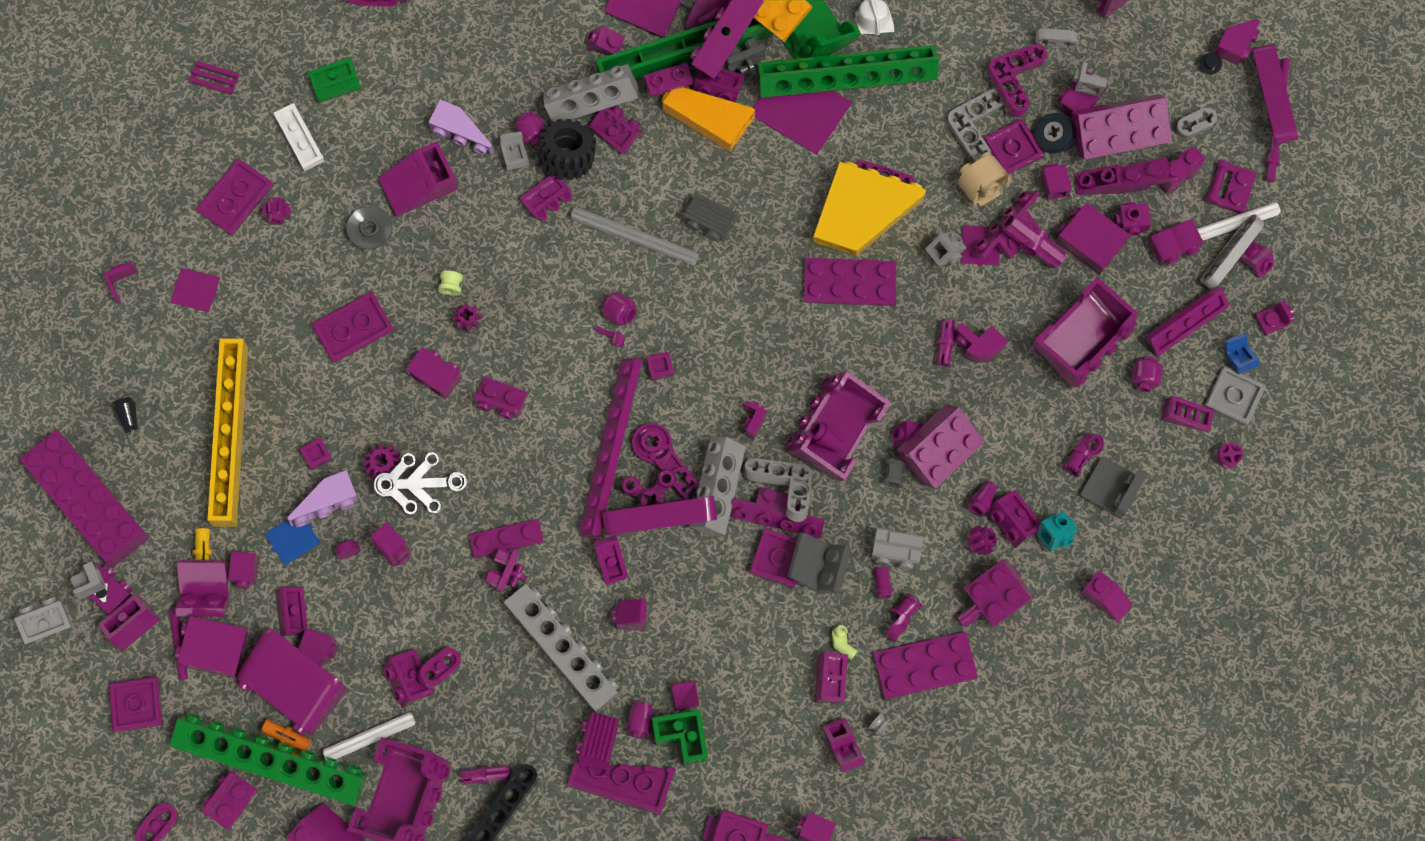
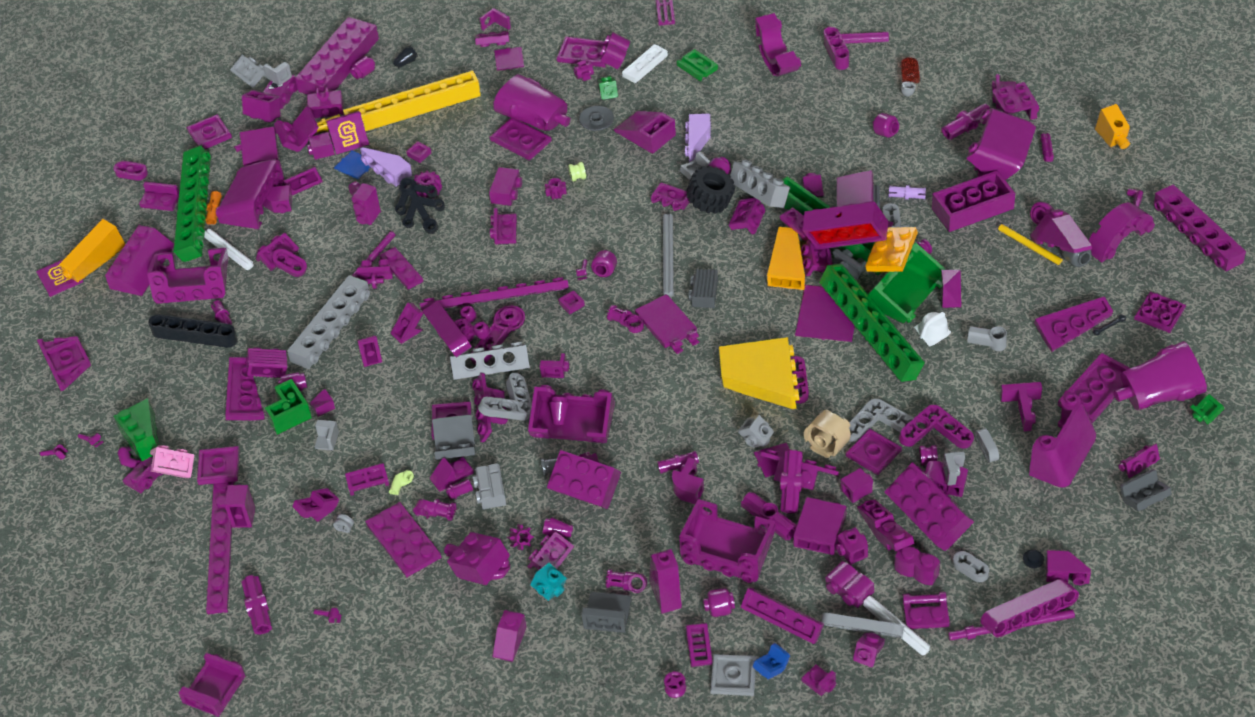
camera: 75 degrees right, 25 degrees down
(118, 472) = (362, 67): none -> magenta brick
(149, 296) = (486, 39): none -> magenta plate
(165, 540) = (325, 103): none -> magenta brick
(244, 527) = (347, 132): none -> magenta tile
(262, 161) = (614, 50): none -> magenta brick
(313, 291) = (530, 103): none -> magenta torso
(317, 194) = (608, 87): none -> bracket
(469, 567) = (381, 246): none -> magenta bar
(713, 318) = (625, 318): none -> magenta connector
(739, 276) = (668, 323): none -> magenta tile
(740, 705) = (327, 434): none -> light grey panel
(850, 282) = (699, 389): magenta plate -> none
(857, 586) = (450, 473): none -> magenta slope
(1001, 771) = (332, 614): none -> magenta hand
(1046, 97) = (928, 454): none -> magenta wheel
(1064, 137) = (894, 468): black bush -> none
(1071, 276) = (769, 511): none -> magenta piece
(1117, 413) = (665, 581): none -> magenta slope

